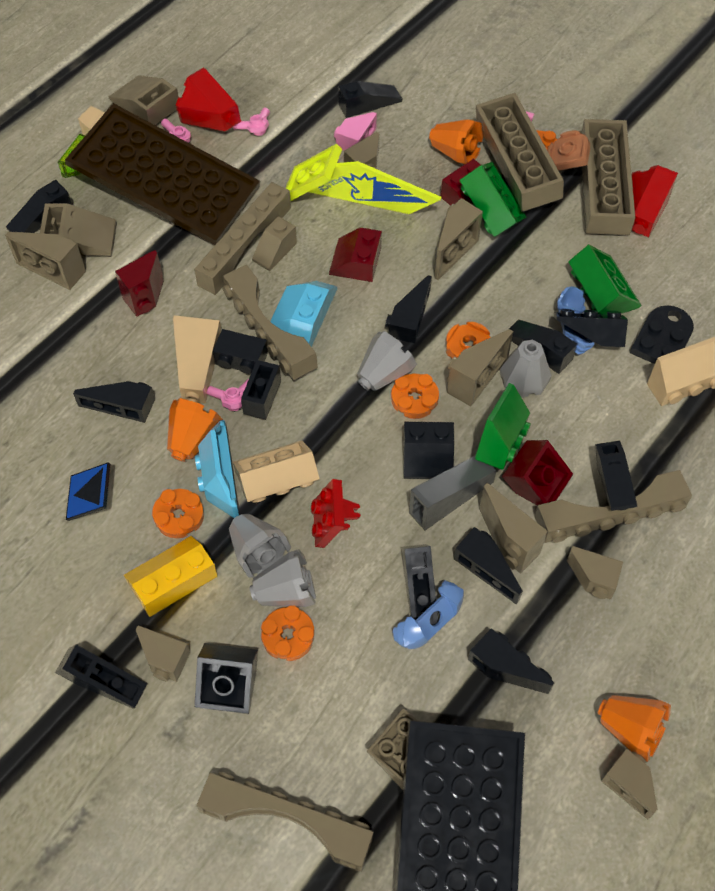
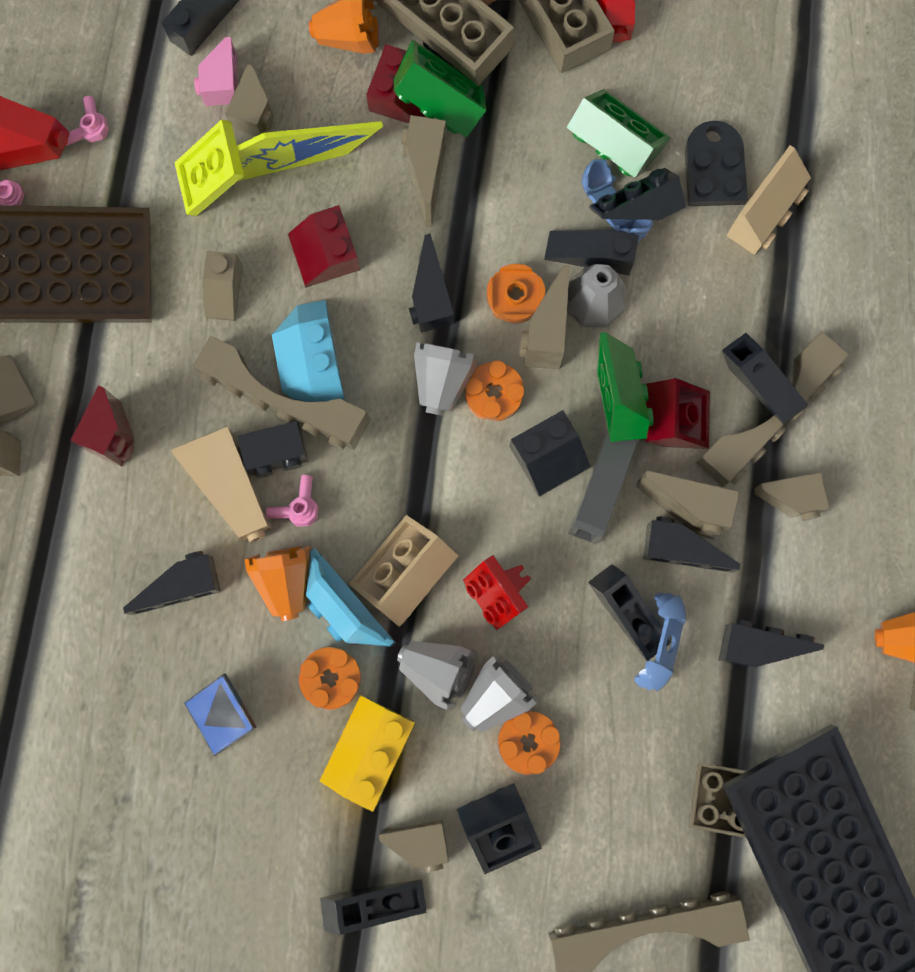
camera: 30 degrees left, 20 degrees up
(225, 254) = (181, 263): dark tan arch -> none
(261, 389) = (328, 485): black brick -> none

